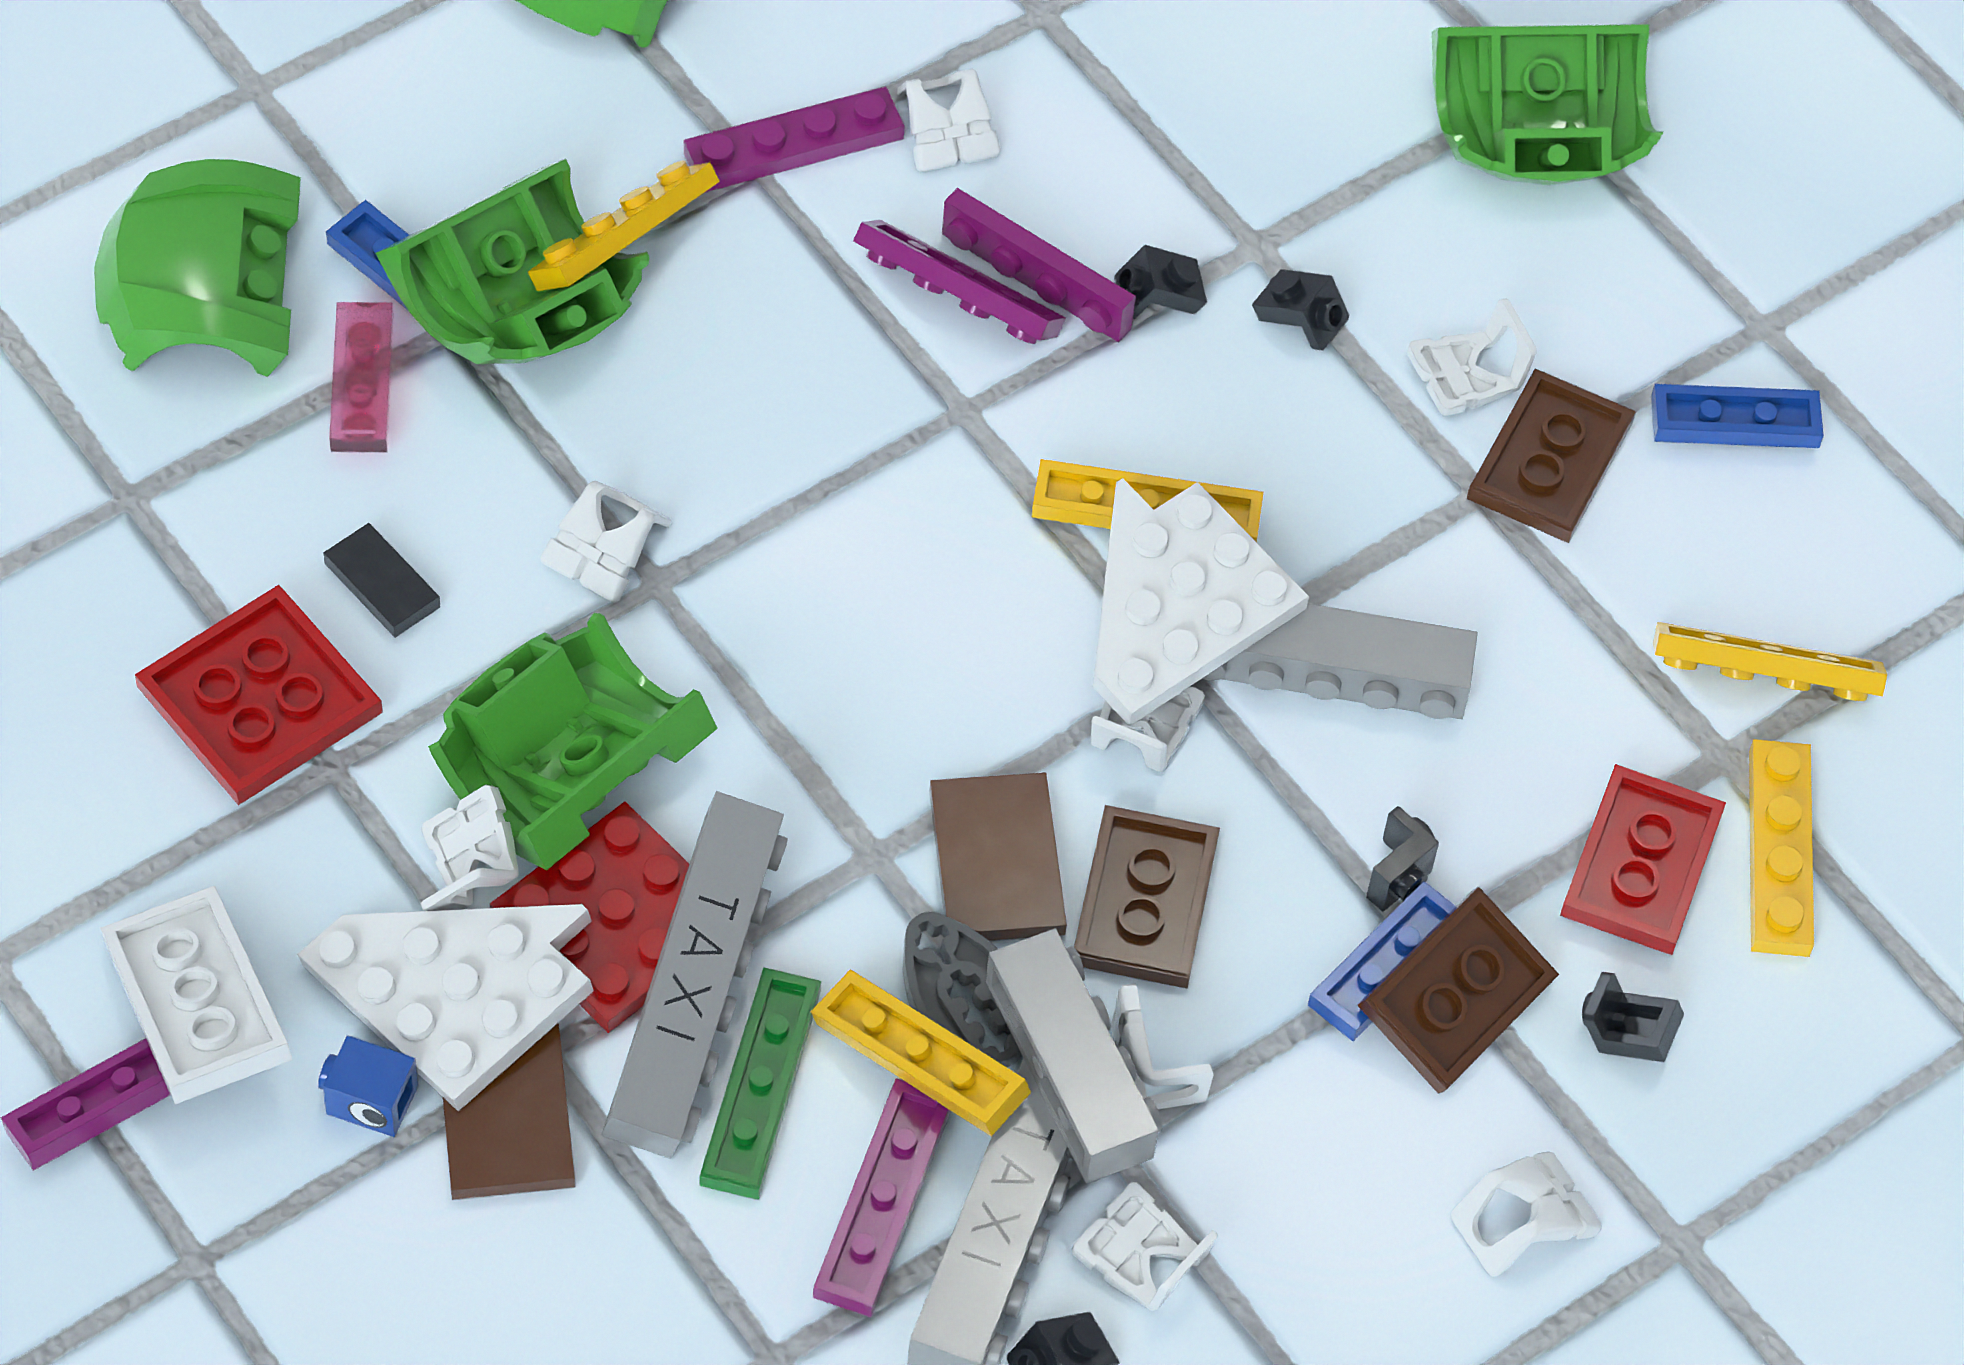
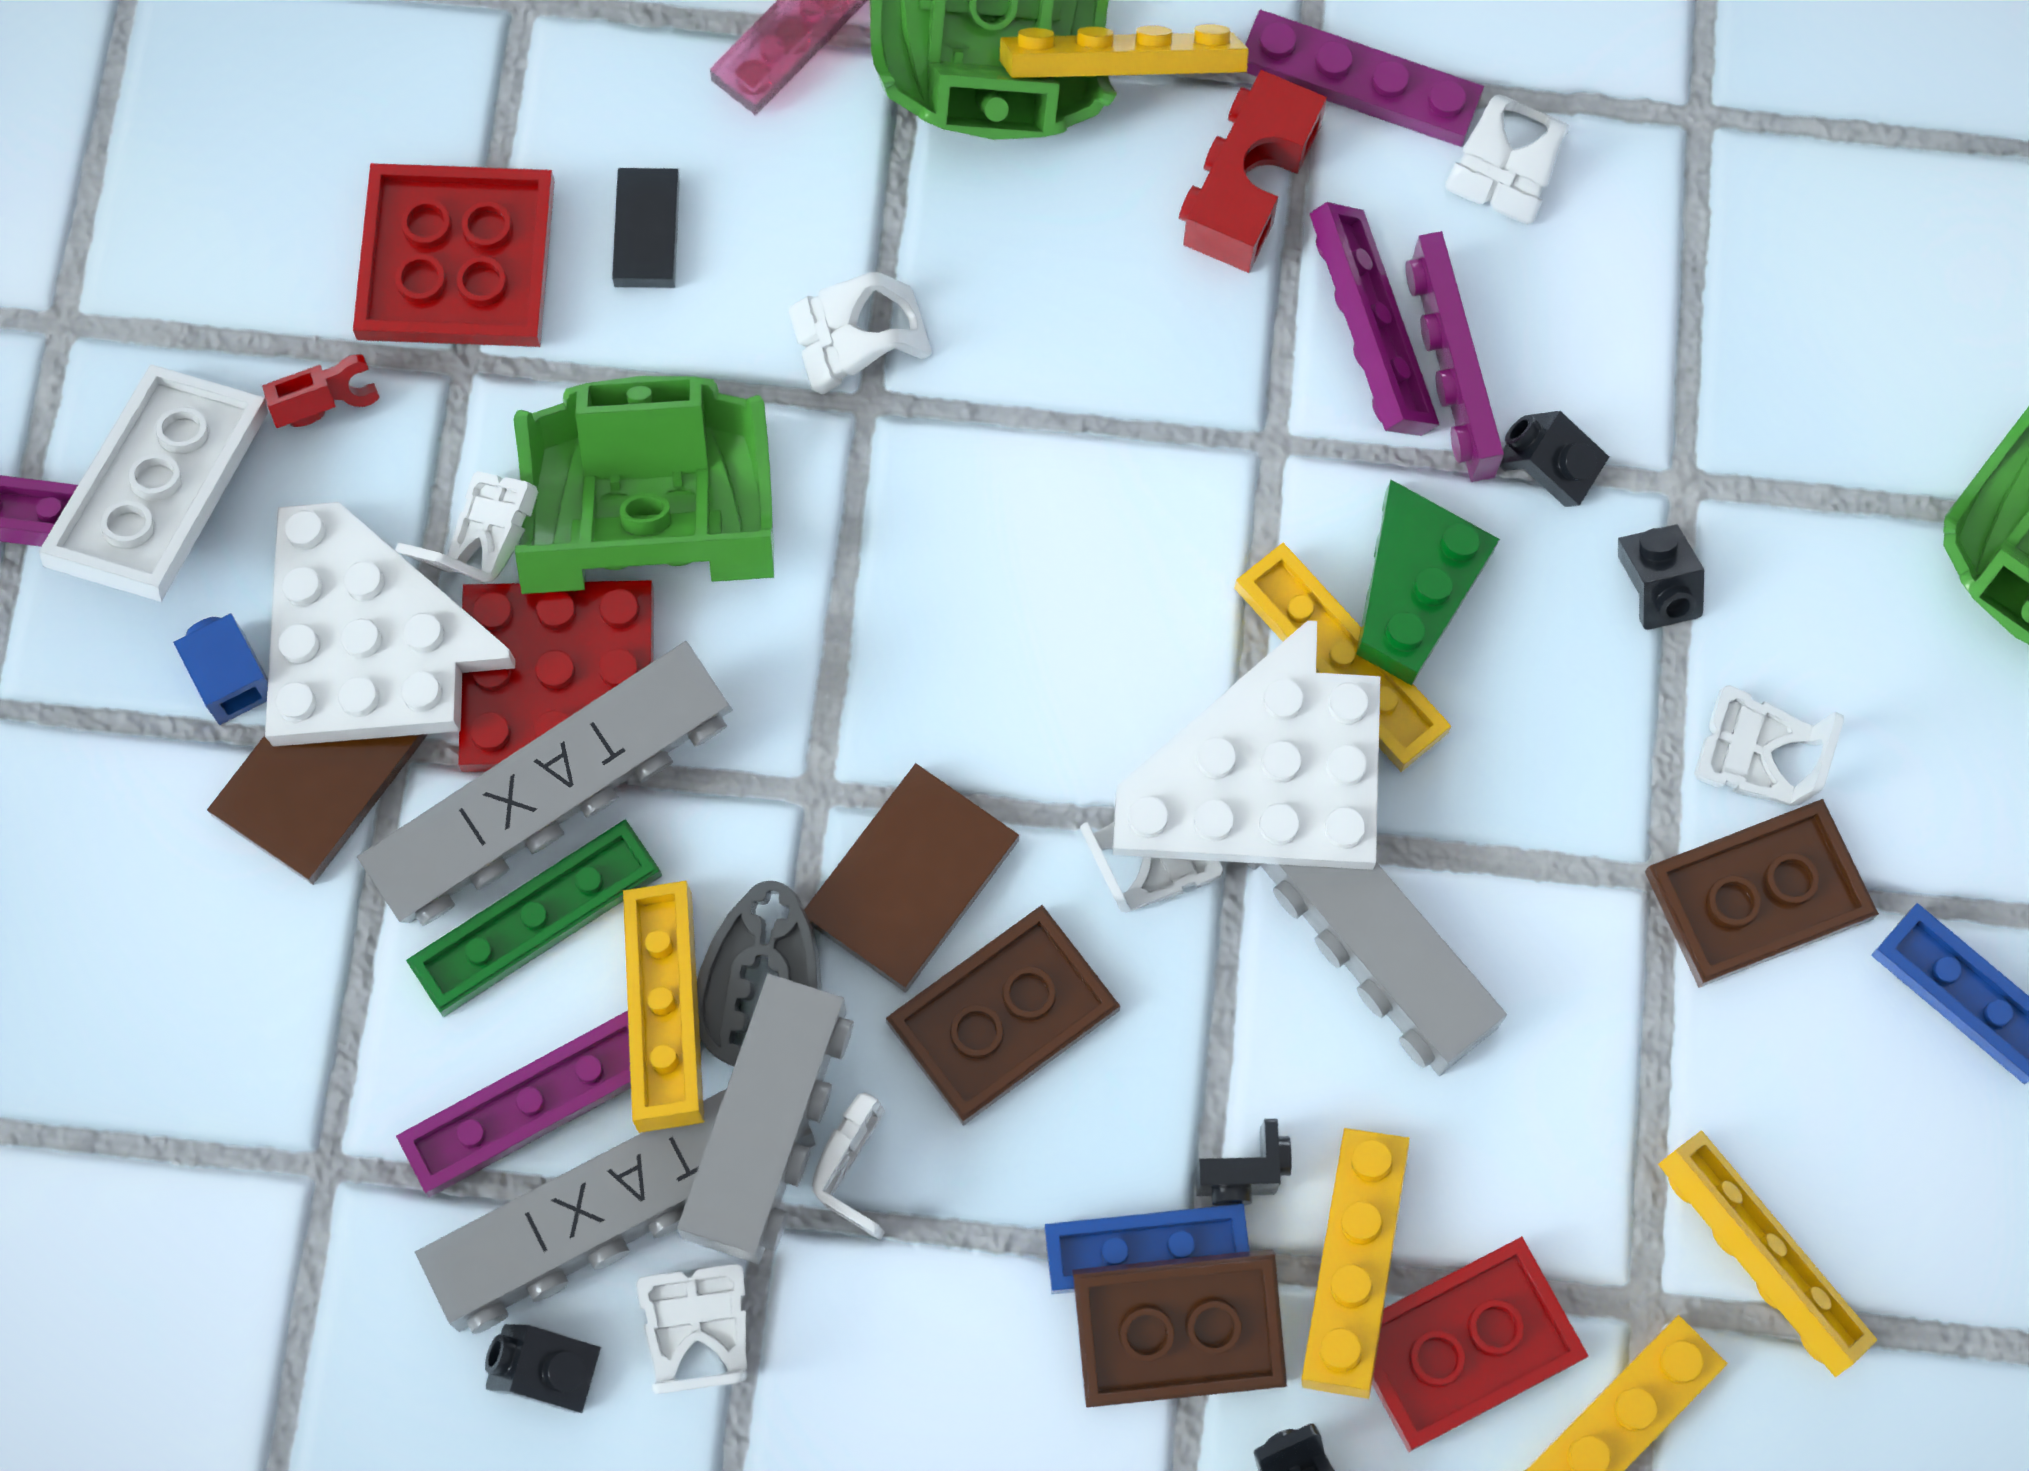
camera: 45 degrees right, 15 degrees up
(244, 860) = (309, 393): none -> red plate
(792, 279) = (1270, 127): none -> red arch
(1153, 417) = (1418, 580): none -> green wing
(1530, 860) = (1356, 1263): none -> yellow plate

